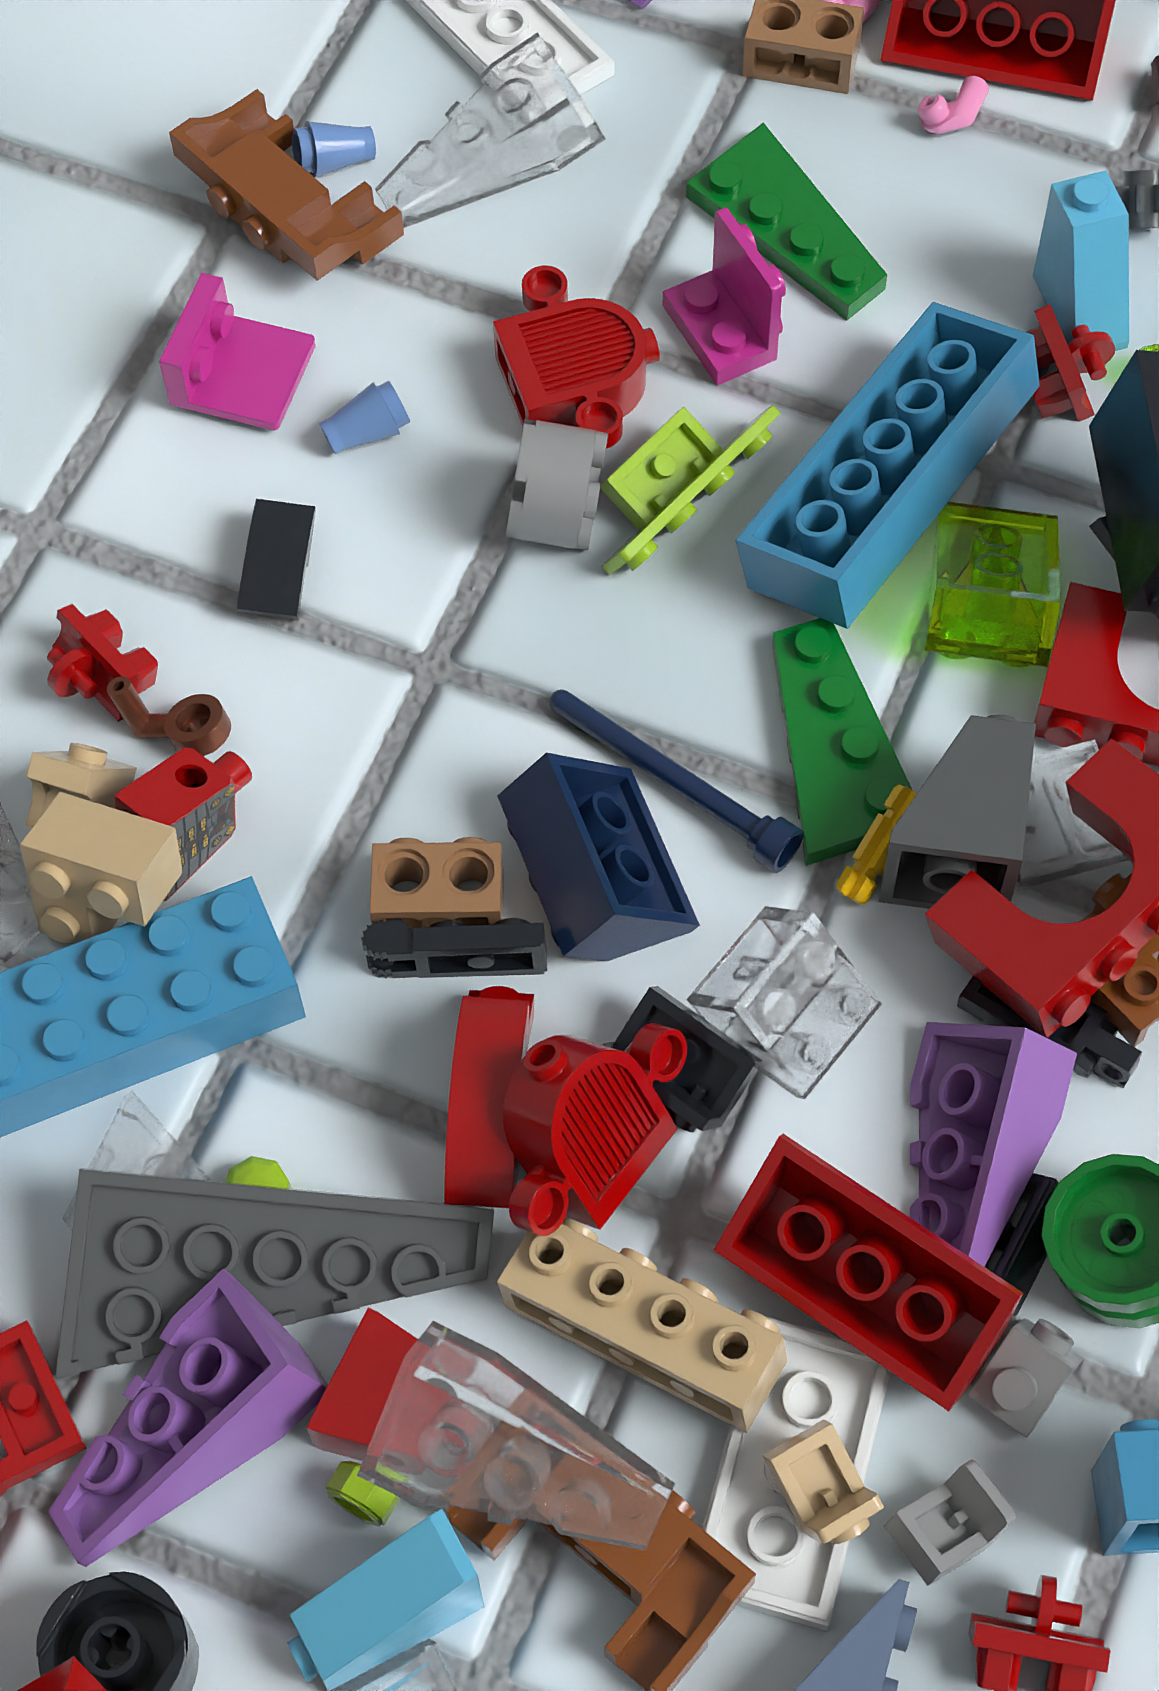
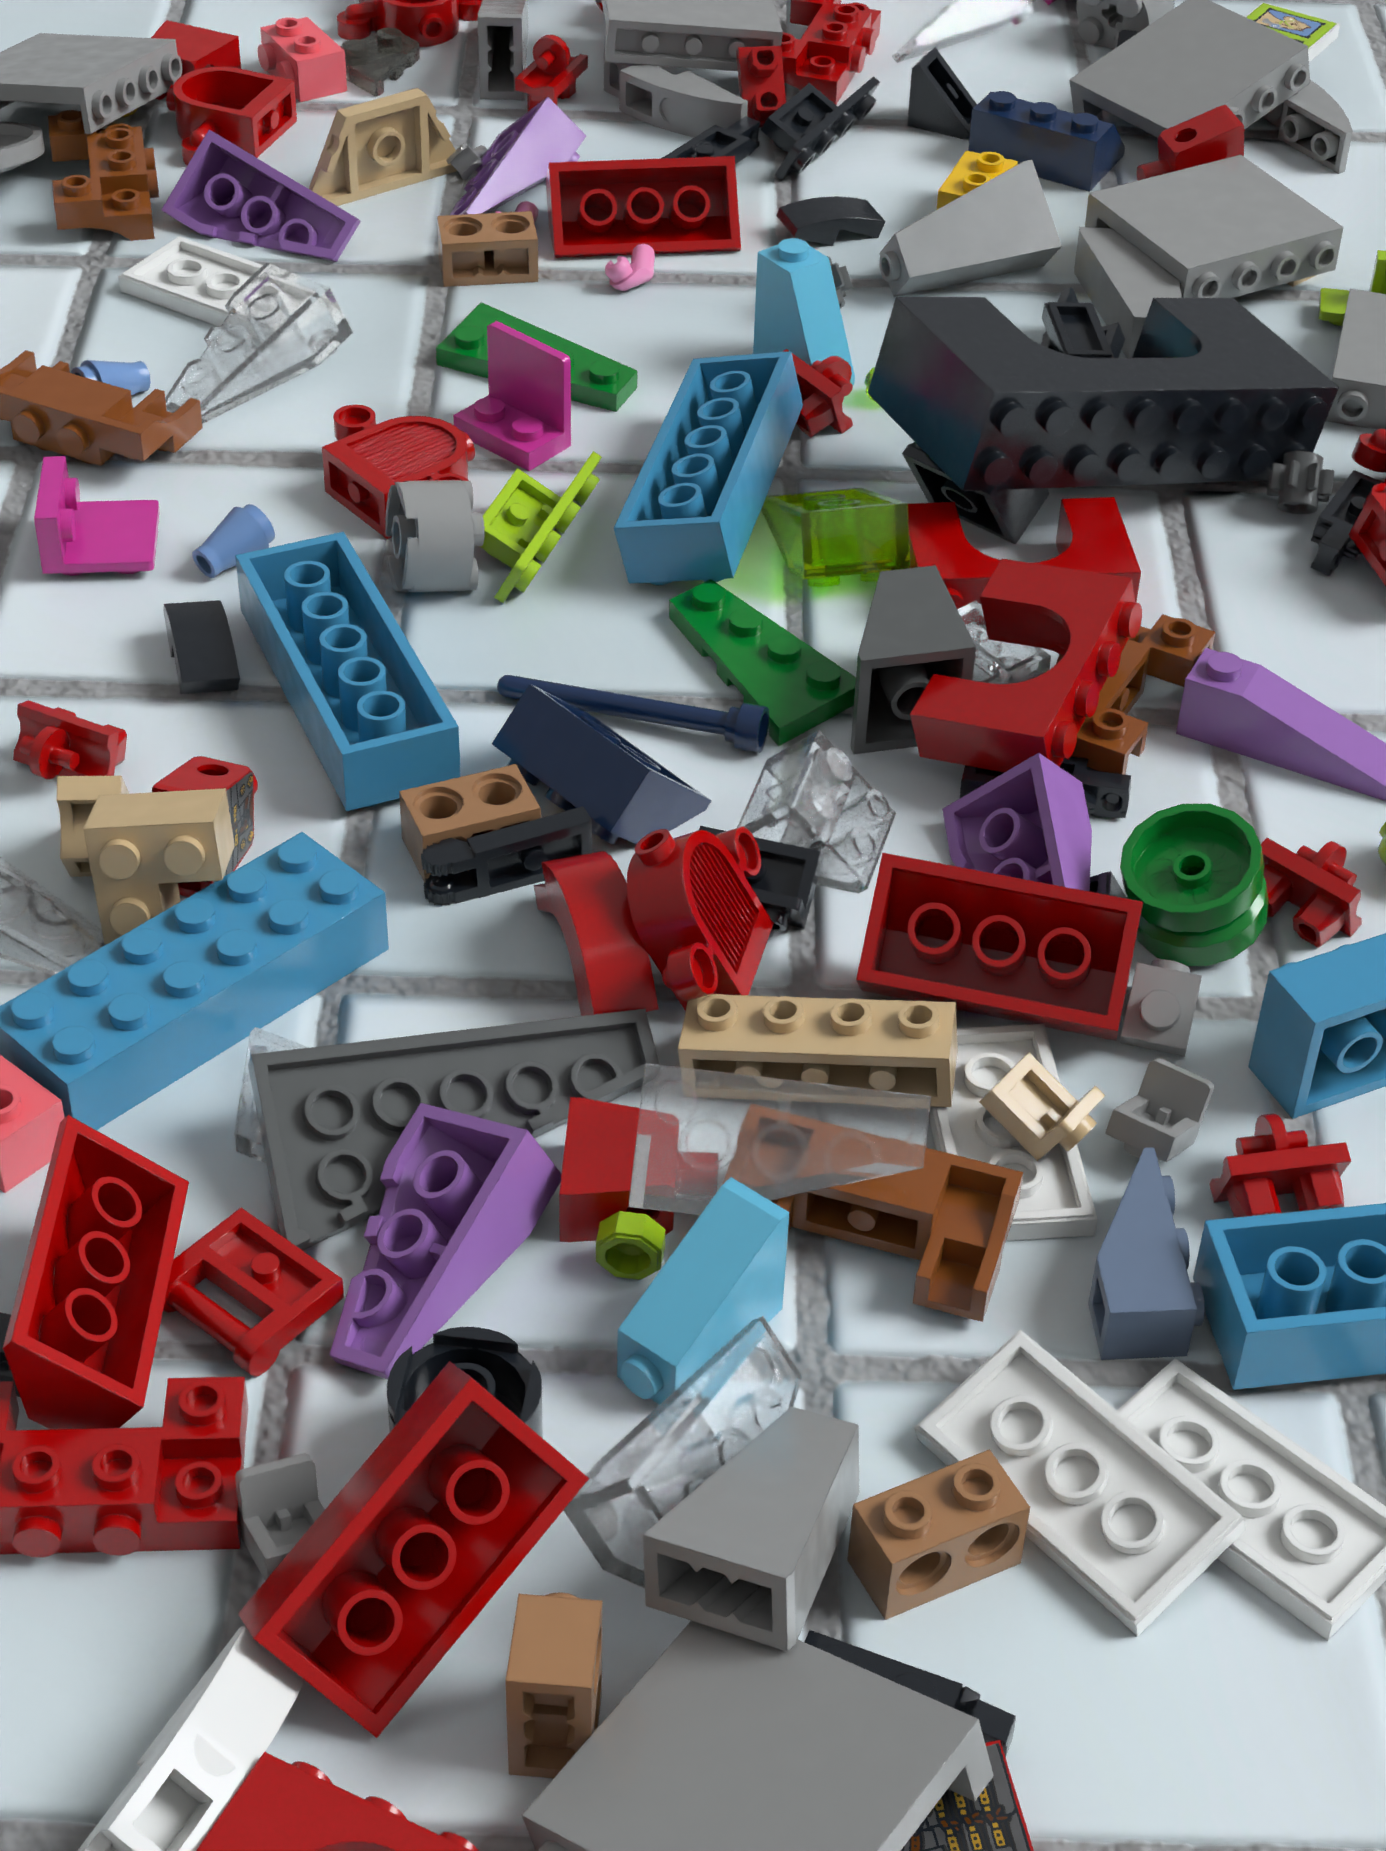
camera: 25 degrees left, 20 degrees down
(191, 723) = (143, 780): copper plate -> none
(393, 649) = (347, 670): none -> dark azure brick
(870, 856) = (839, 699): yellow axle -> none

